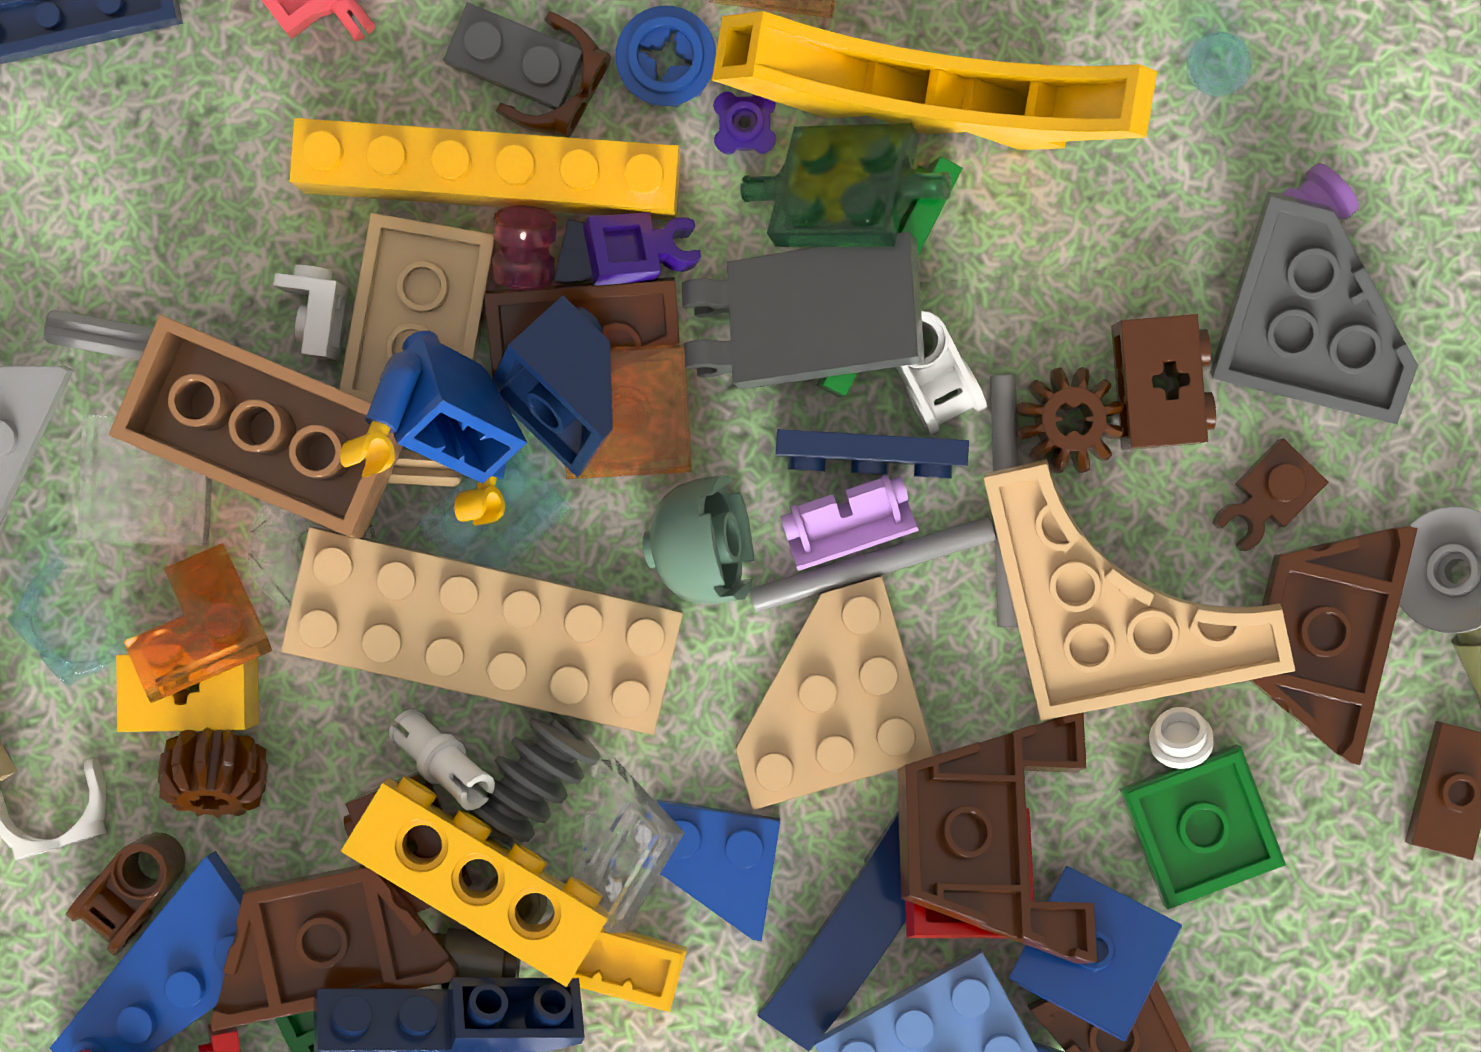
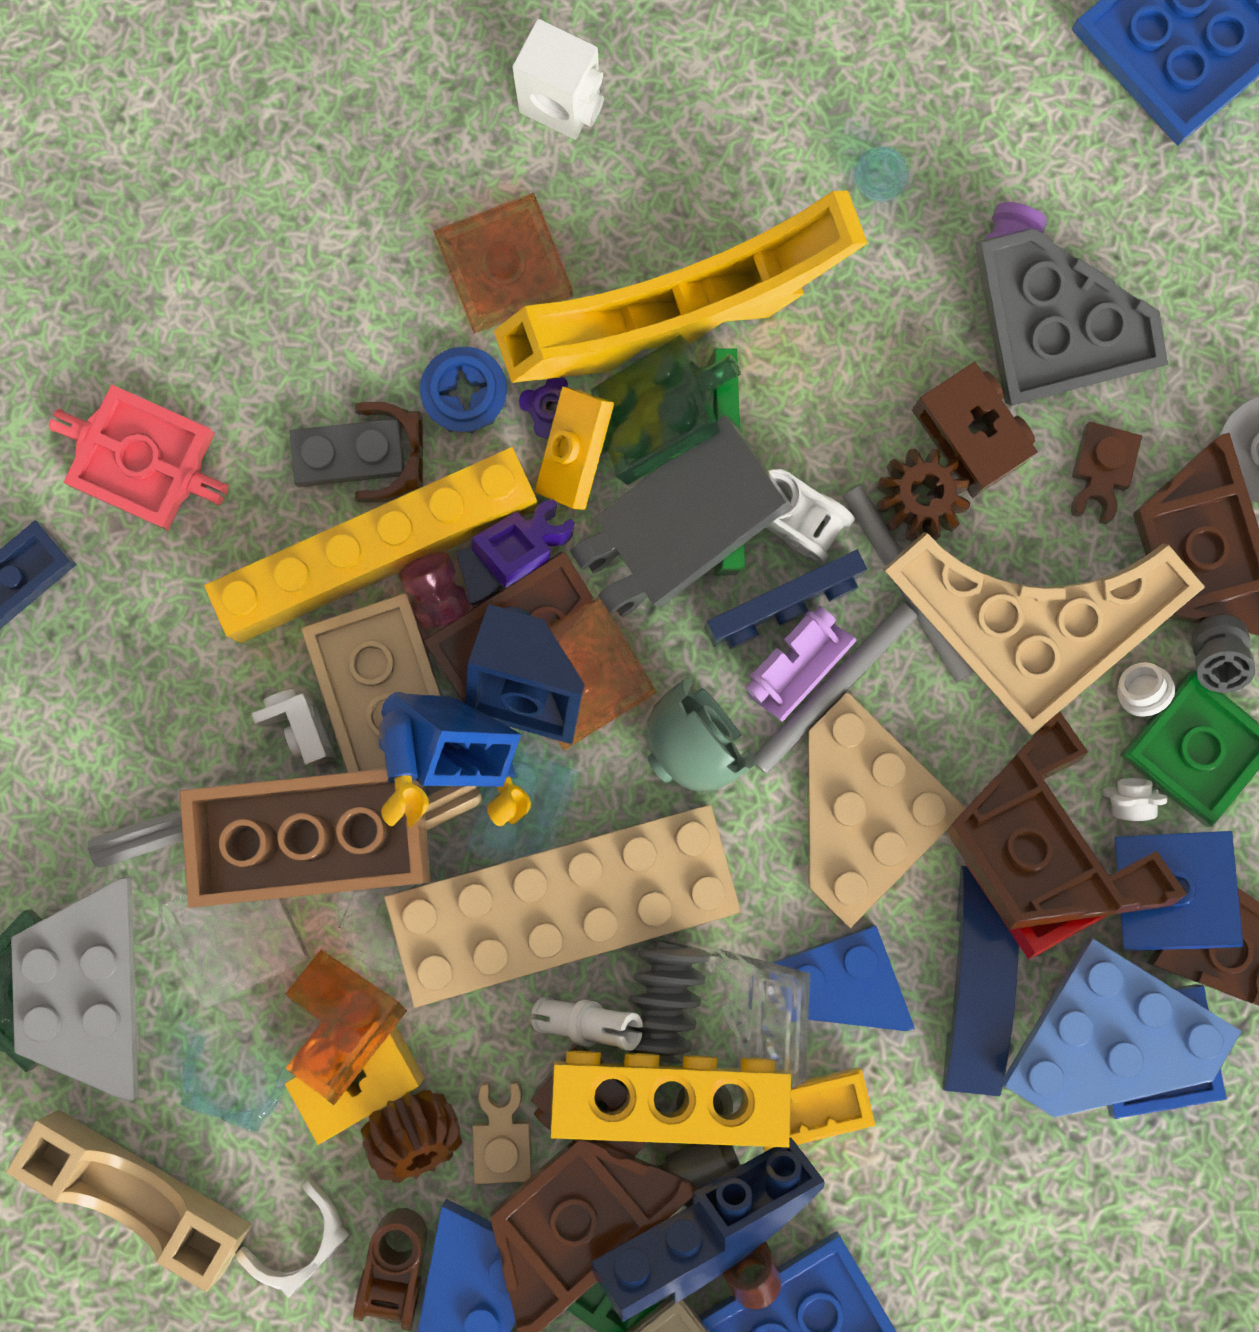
camera: 30 degrees left, 5 degrees down
(298, 827) = (501, 1144): none -> tan plate
(742, 179) = (574, 448): none -> yellow plate
(1106, 840) = (1134, 799): none -> white plate
(1277, 746) = (1223, 654): none -> dark grey wheel

